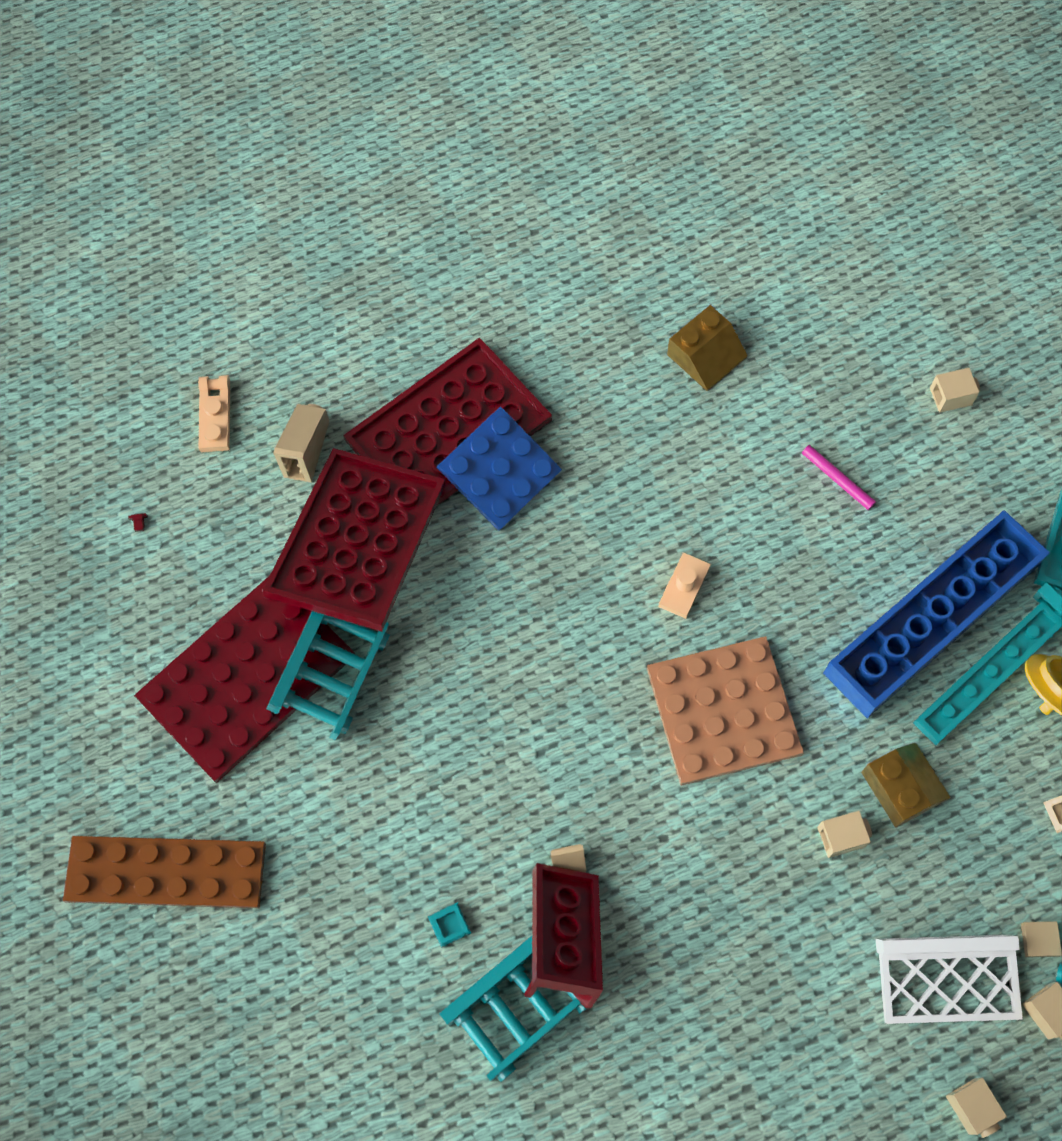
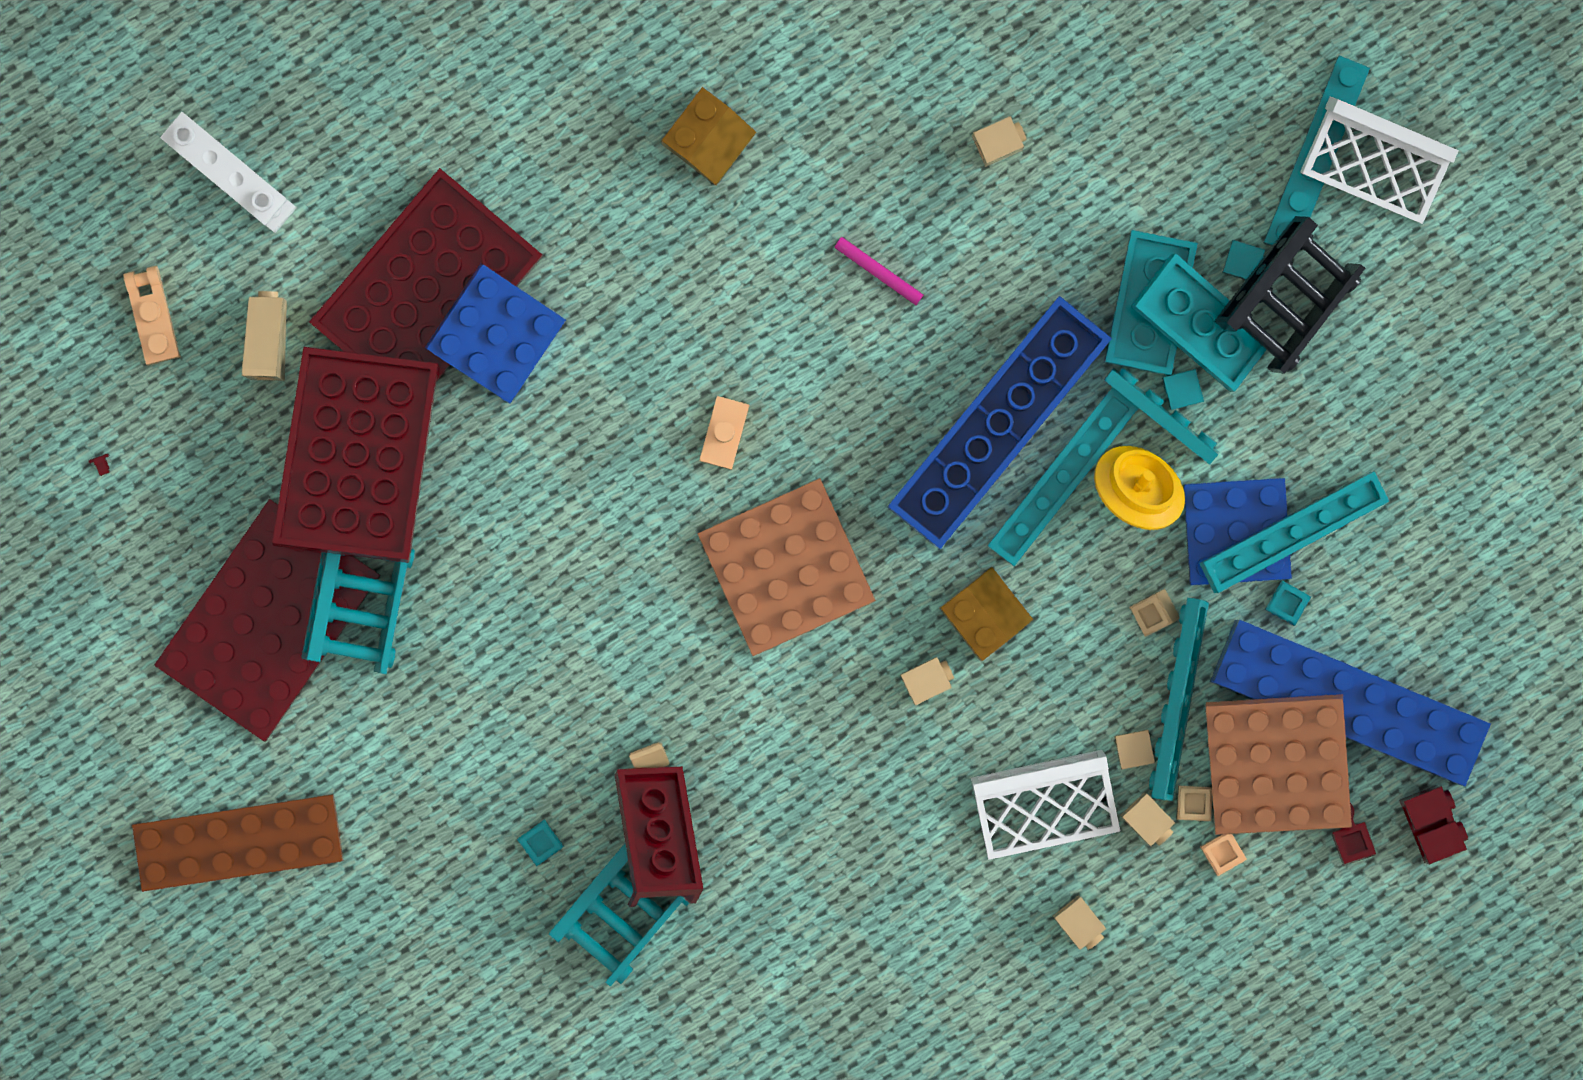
camera: 15 degrees left, 20 degrees up
(305, 306) = (228, 172): none -> white fence

